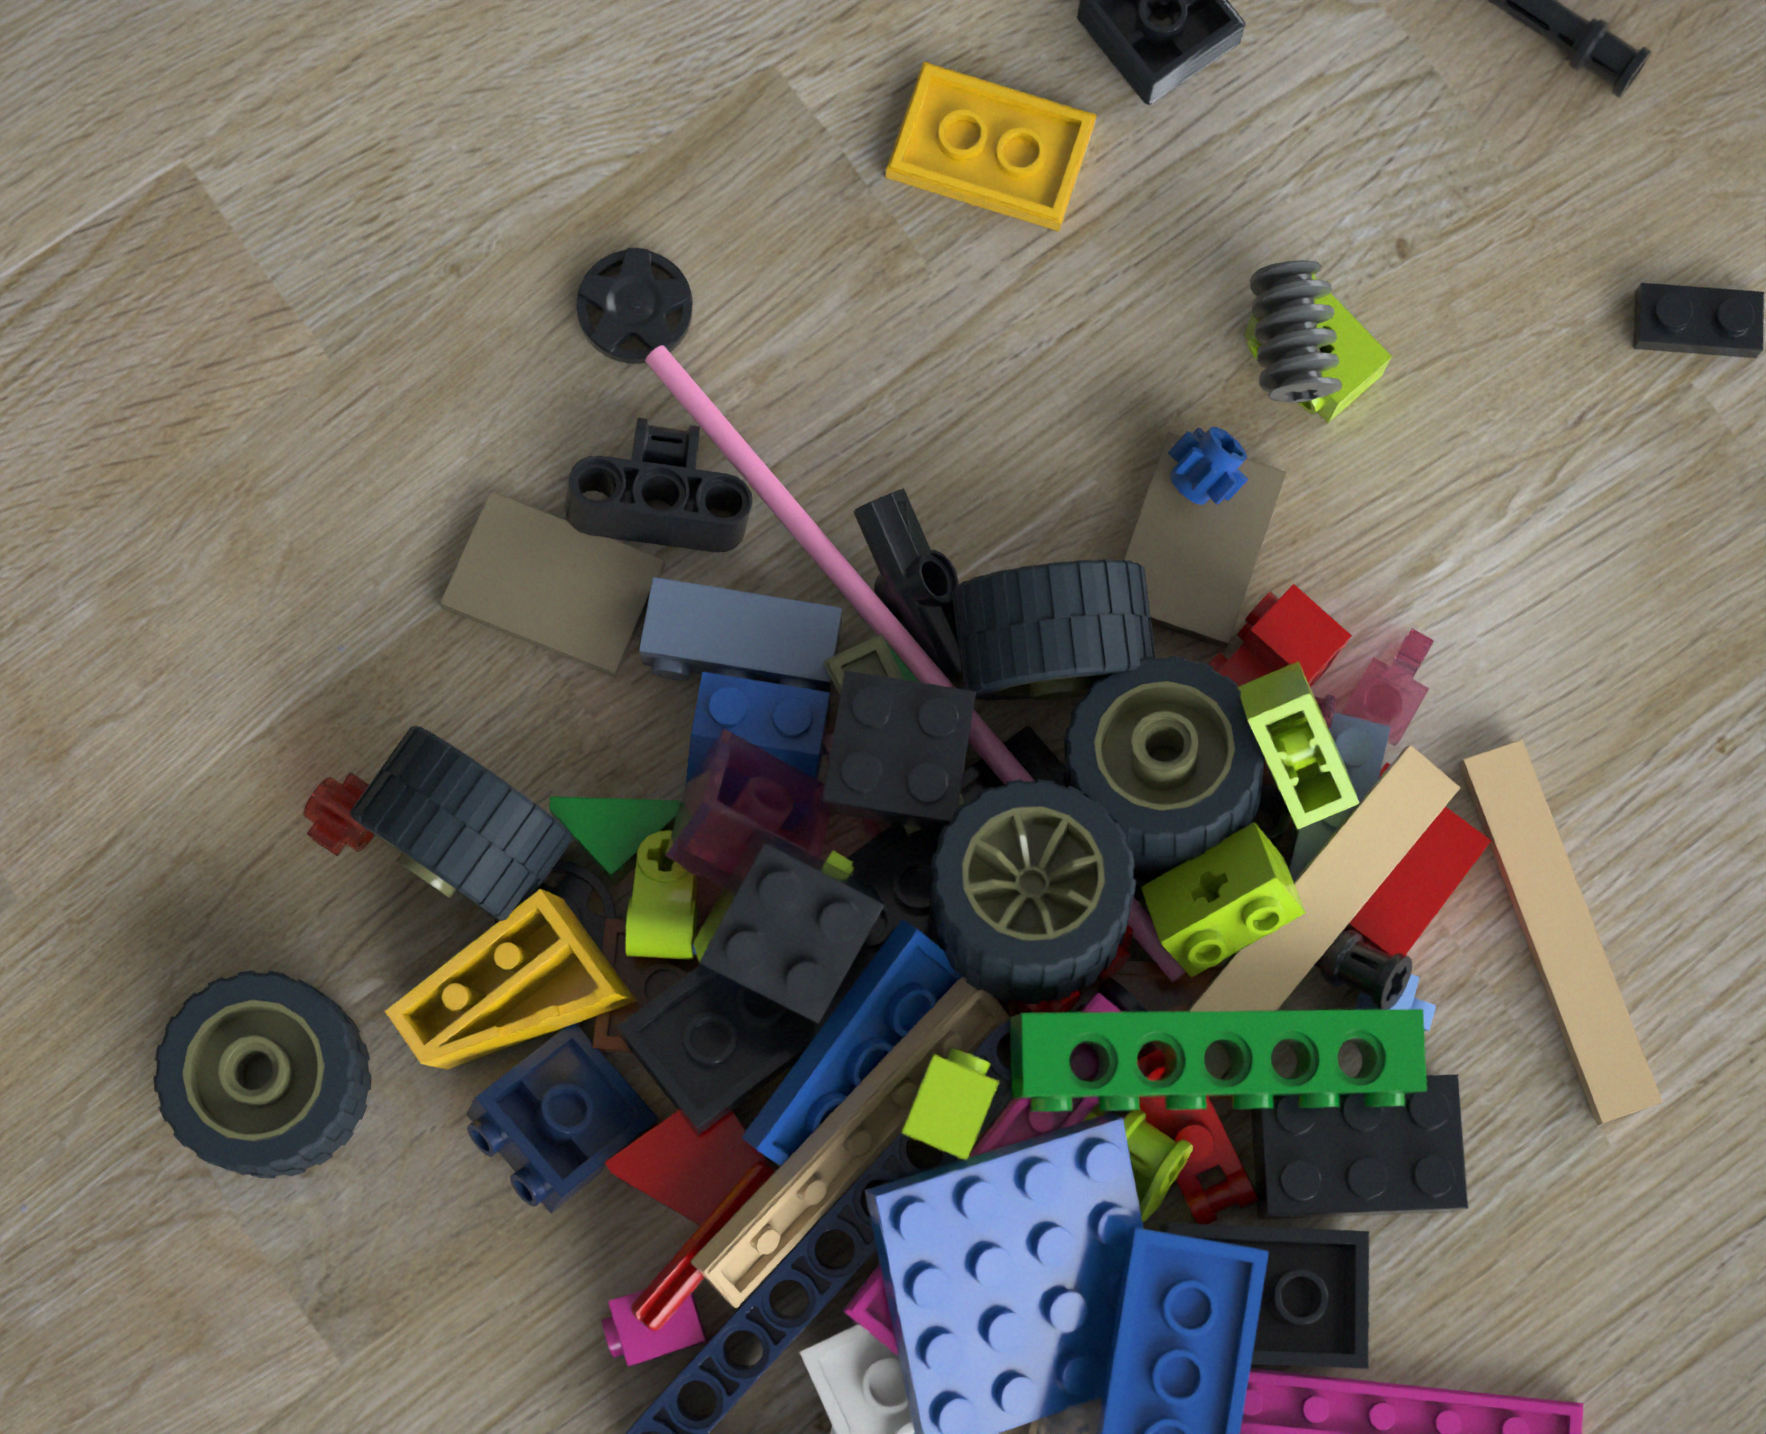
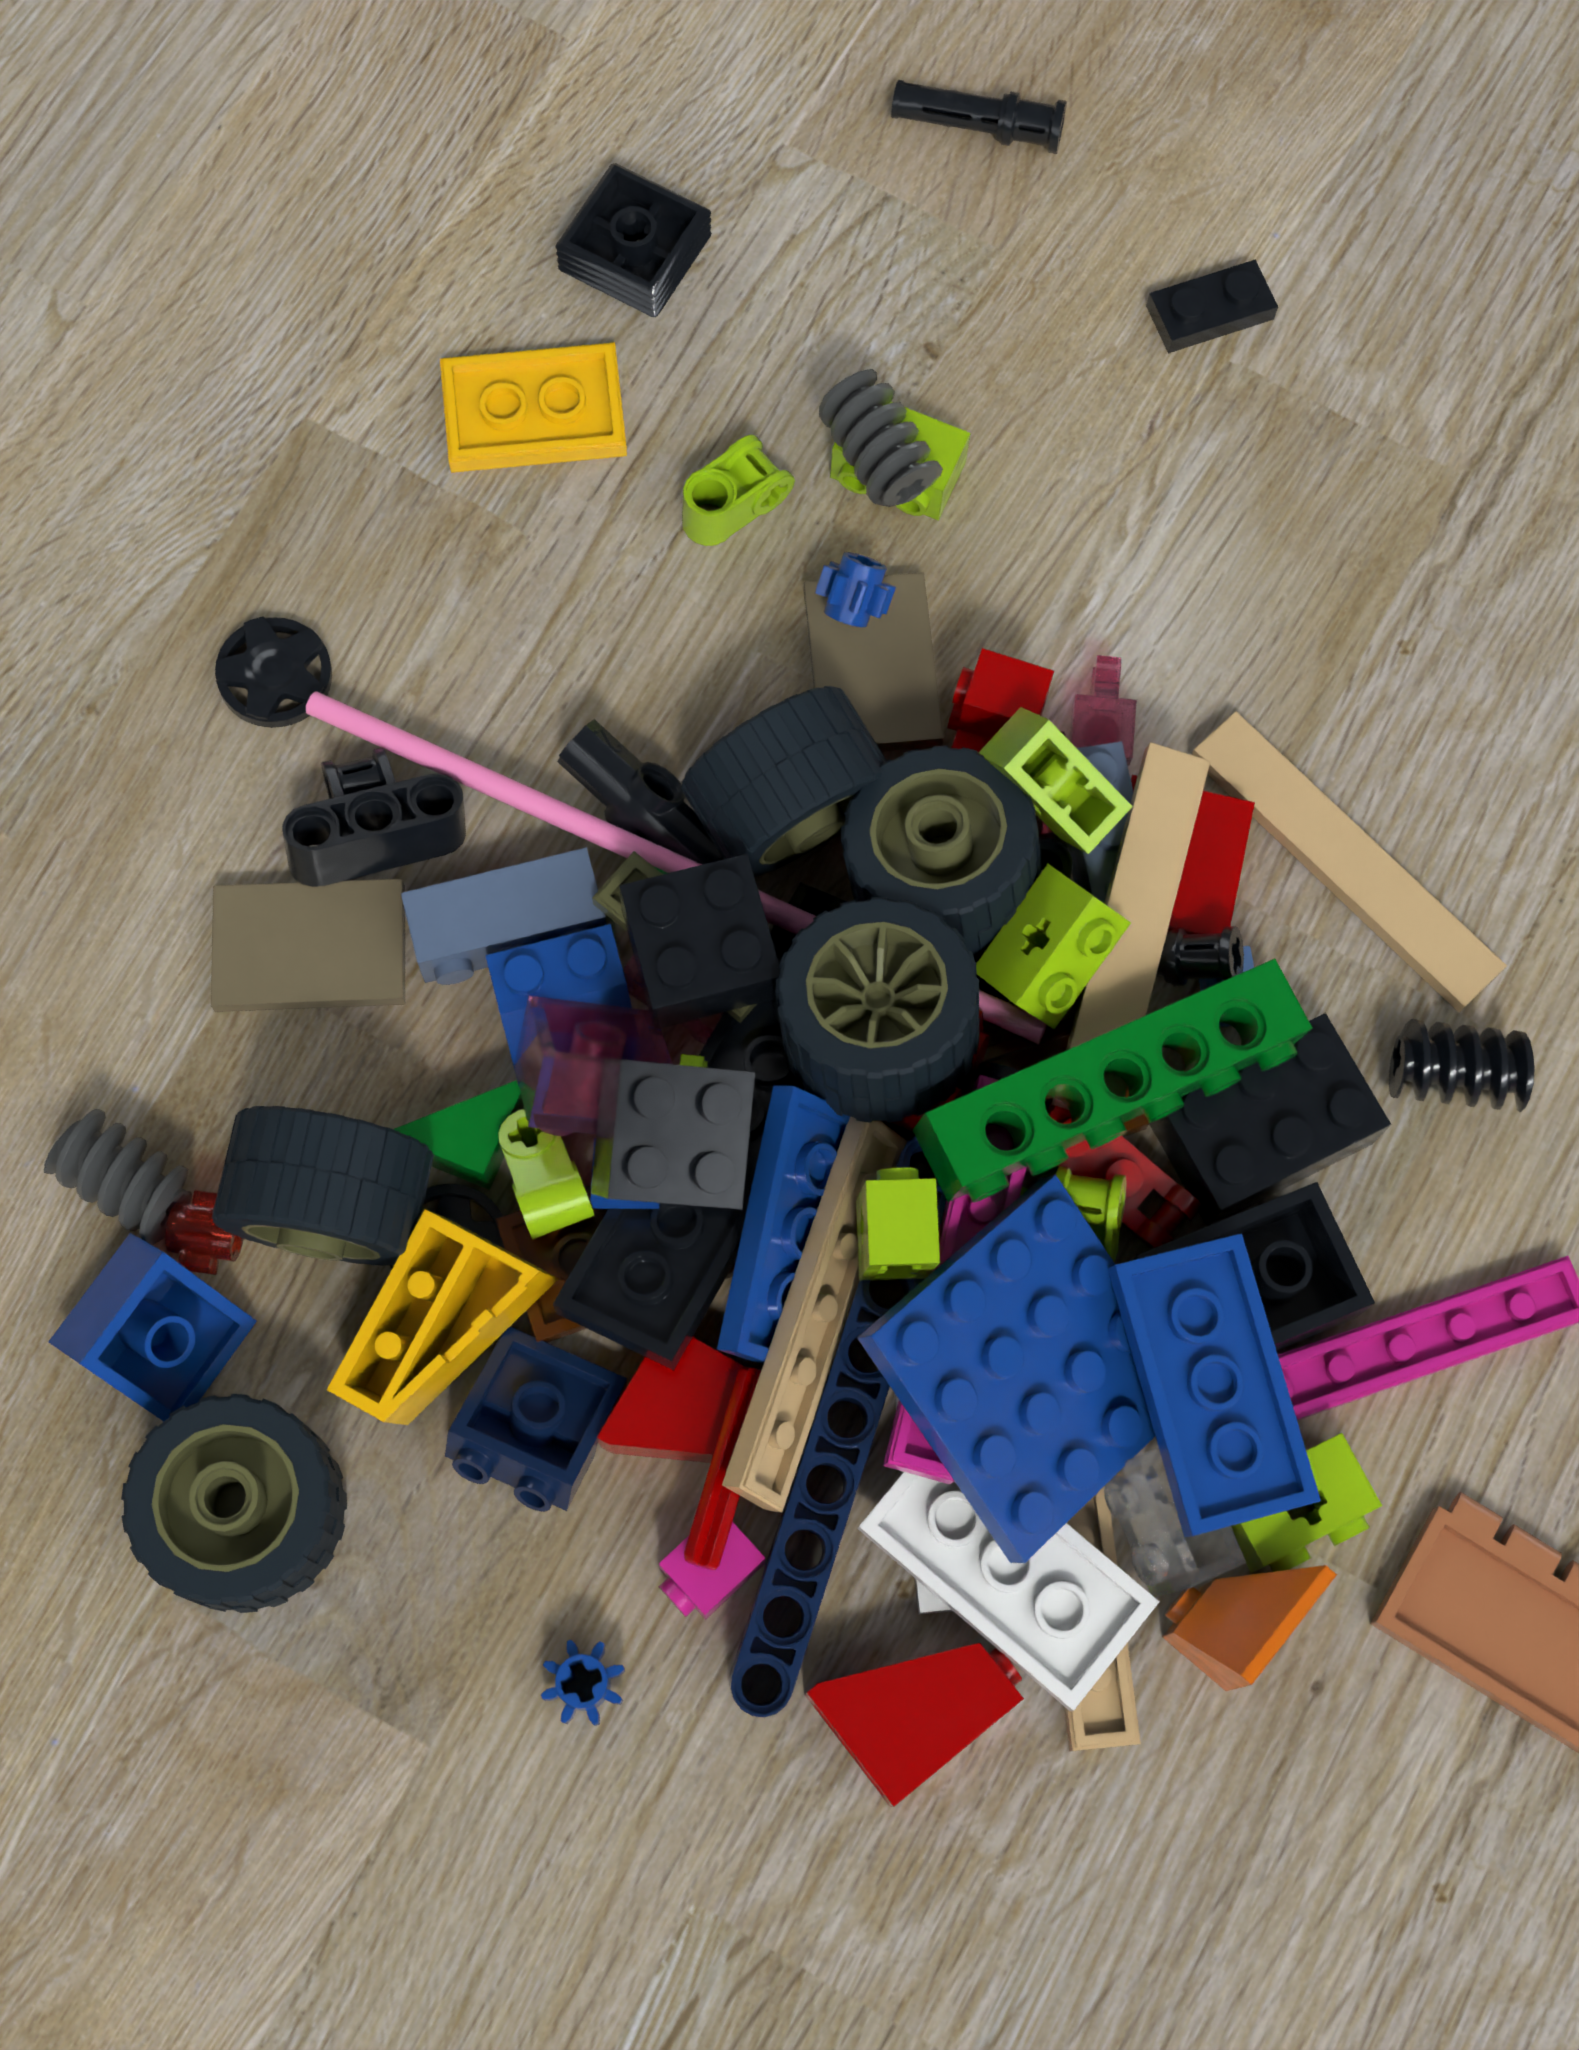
camera: 25 degrees left, 5 degrees down
(259, 883) = (152, 1329): none -> blue slope
(289, 728) = (118, 1175): none -> dark grey piece
(484, 1387) = (565, 1675): none -> blue gear
(1153, 311) = (740, 484): none -> lime piece
(1570, 1178) = (1463, 1061): none -> black piece

